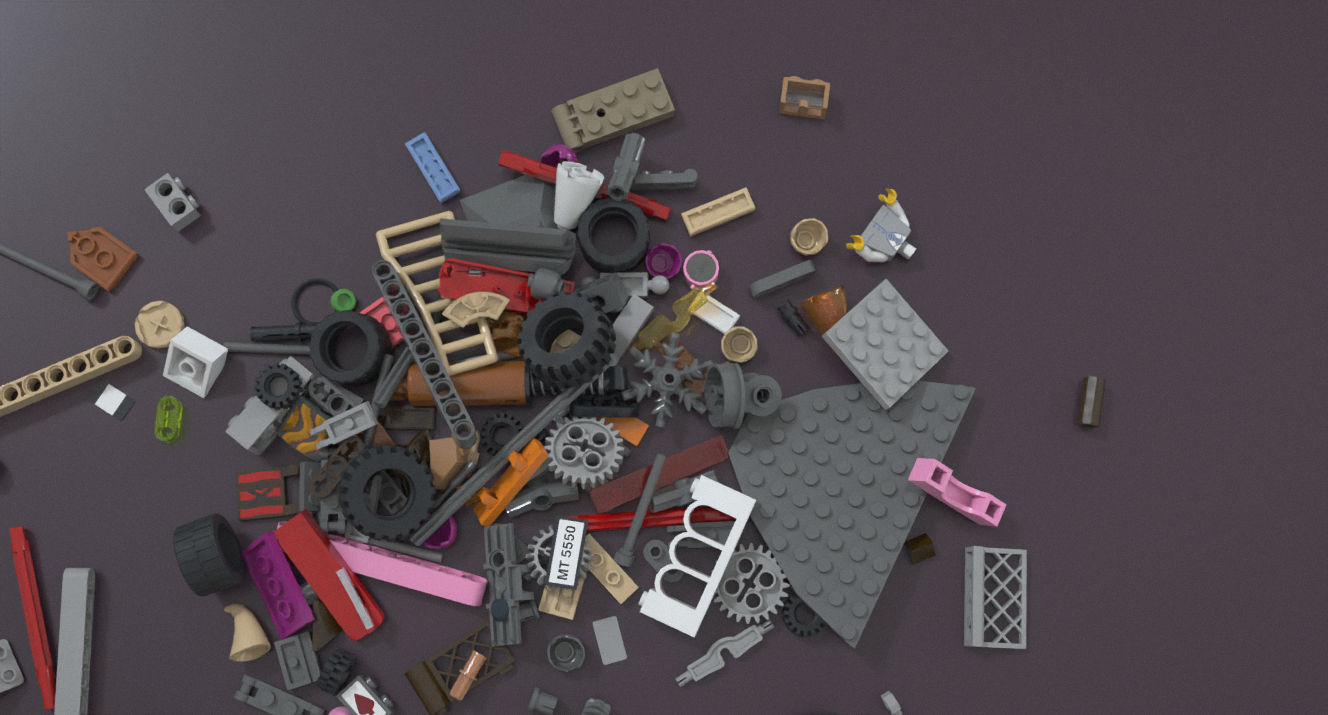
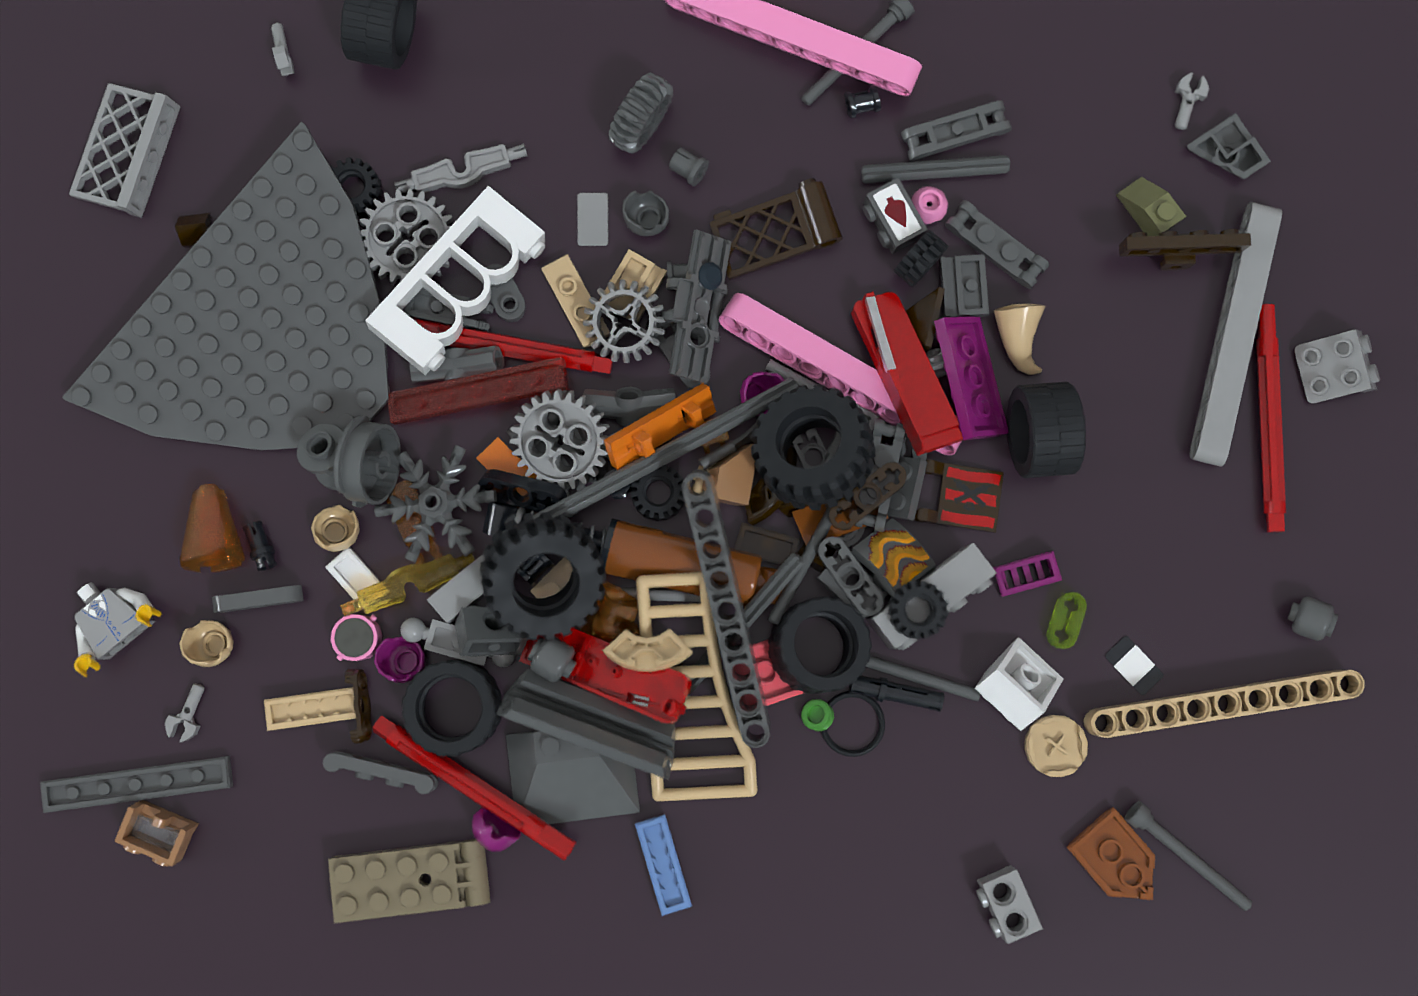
camera: 170 degrees left, 5 degrees up
(209, 454) = (1036, 559): none -> magenta slope
(346, 425) = (845, 542): light grey hinge -> none
(467, 675) = (767, 215): nougat axle -> none
(566, 552) = (612, 321): sticker -> none
(574, 193) = (484, 774): white cone -> none
(625, 555) = (546, 309): dark grey piece -> none
(626, 167) = (409, 790): dark grey piece -> none
(691, 241) = (363, 719): none -> dark brown piece
(810, 185) = (186, 715): none -> light grey bar
(830, 128) = (136, 784): none -> dark grey tile
(885, 344) = (152, 478): light grey plate -> none
(937, 480) = (132, 280): bright pink arch -> none

